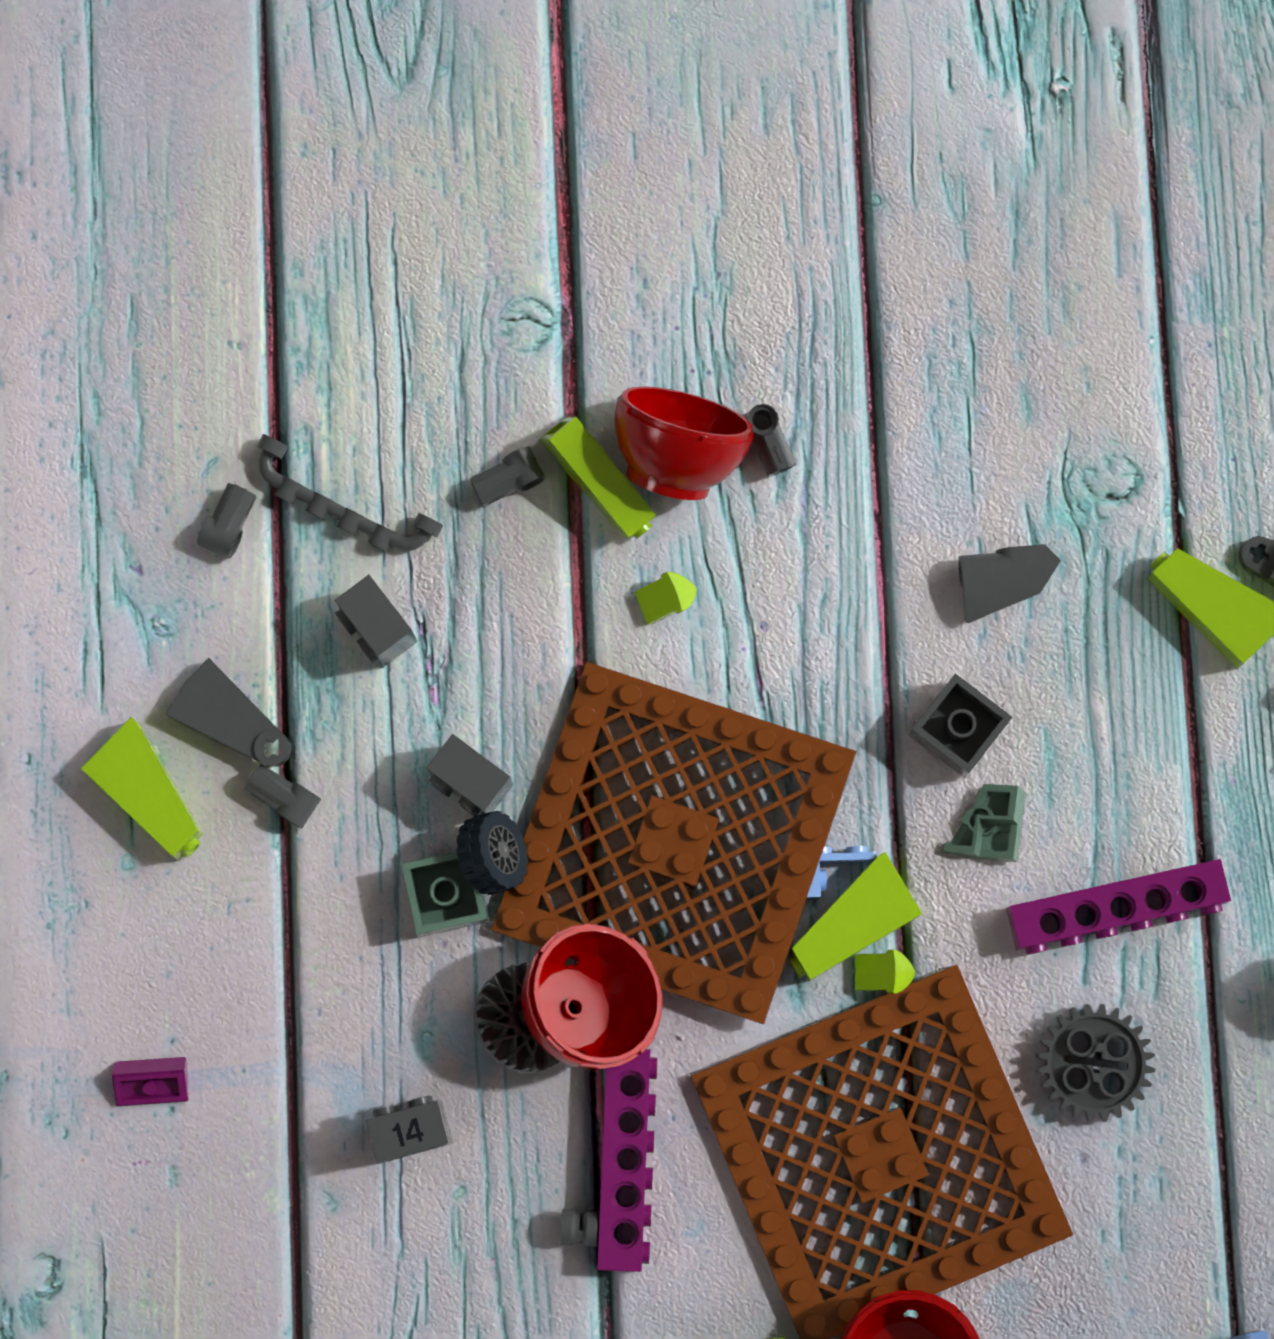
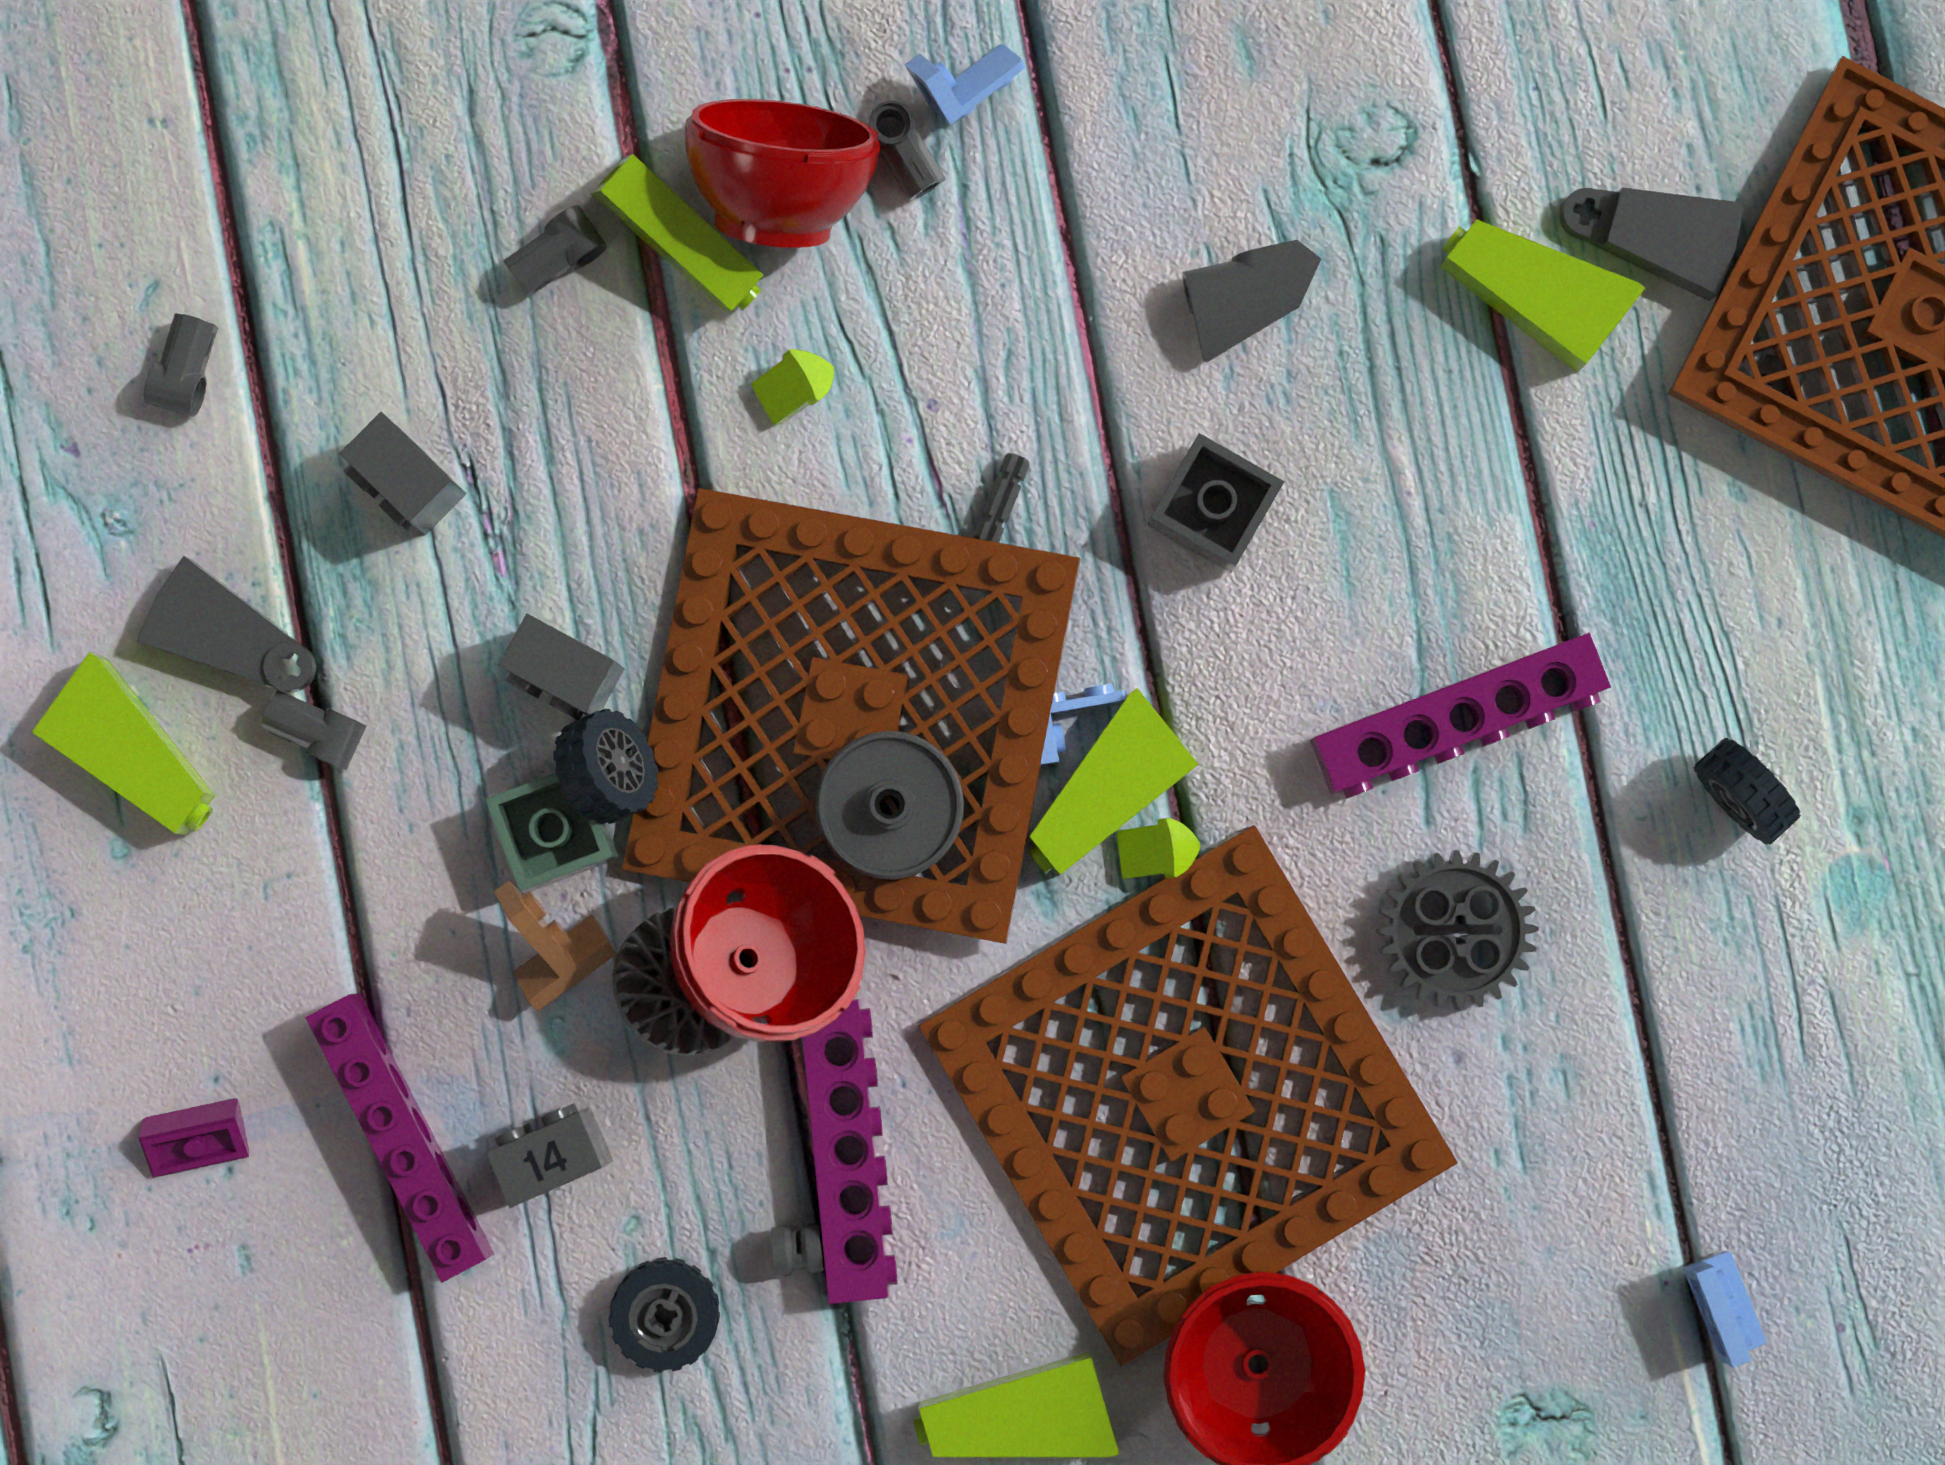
camera: 10 degrees left, 5 degrees up
(301, 1101) = (400, 1136): none -> magenta brick
(349, 520) = (308, 327): dark grey bar -> none
(440, 986) = (561, 956): none -> medium nougat bracket
(474, 1261) = (664, 1314): none -> black wheel
(721, 907) = (896, 767): none -> dark grey wheel
(805, 700) = (1002, 498): none -> dark grey axle
(814, 407) = (959, 96): none -> light blue bracket
(992, 825) = (1276, 631): sand green slope -> none

